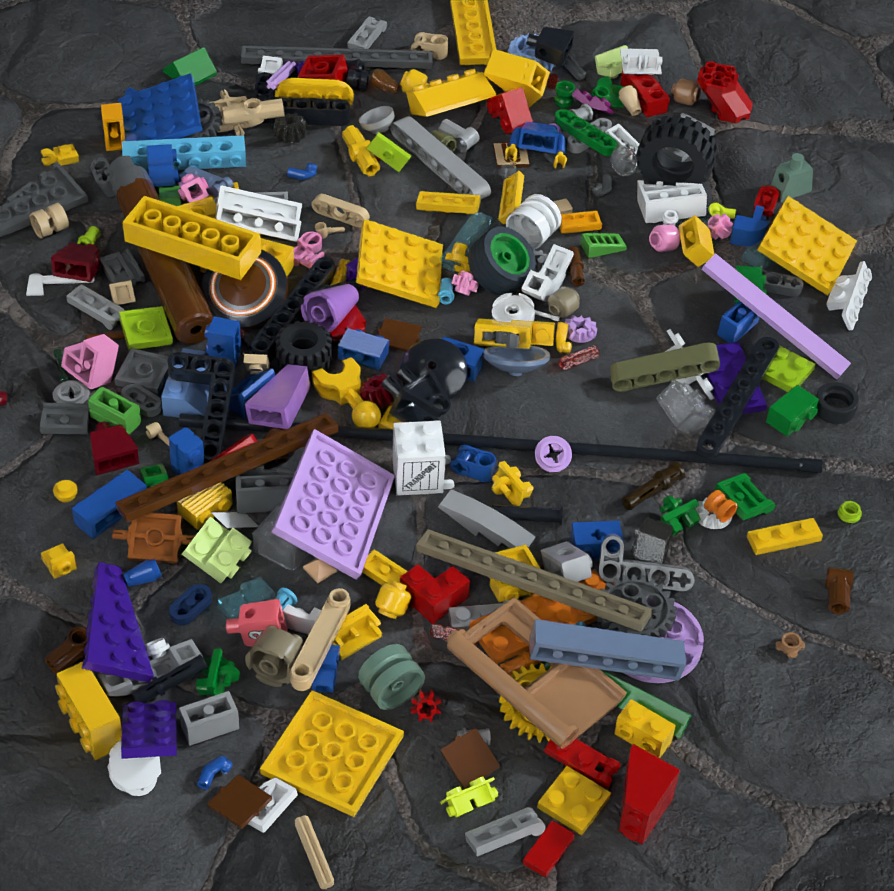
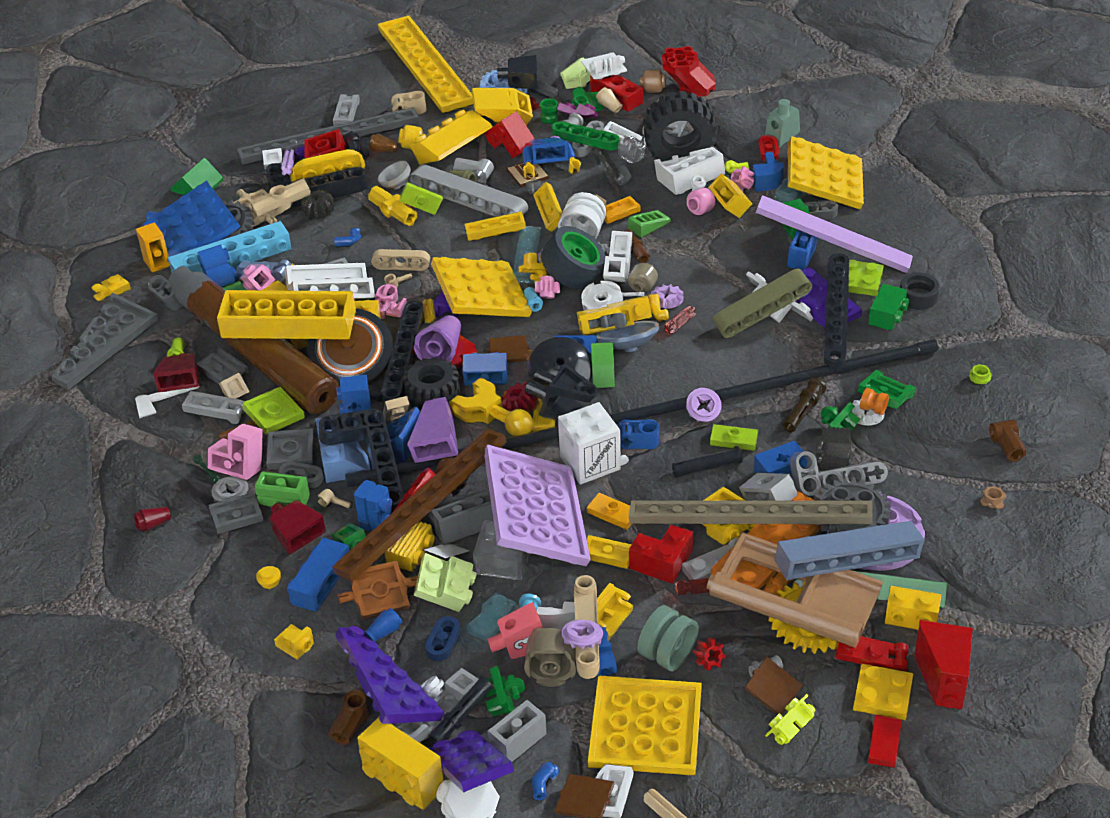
camera: 15 degrees left, 5 degrees down
(51, 219) = (131, 344): tan wheel -> none
(308, 639) = (575, 632): none -> lavender gear
(319, 570) = (545, 569): light nougat slope -> none
(393, 599) = (630, 572): yellow head -> none
(408, 529) = (610, 510): none -> light orange plate
(475, 381) = (603, 364): none -> bright green slope
(481, 518) = (670, 478): light grey slope -> none
(504, 831) = (839, 739): light grey plate -> none
(508, 482) = (679, 442): yellow hips -> none
(568, 496) = (734, 436): none -> lime plate
(685, 407) = (797, 331): clear slope -> none
(784, 536) = (936, 411): yellow plate -> none
(849, 294) = (879, 201): white bracket -> none

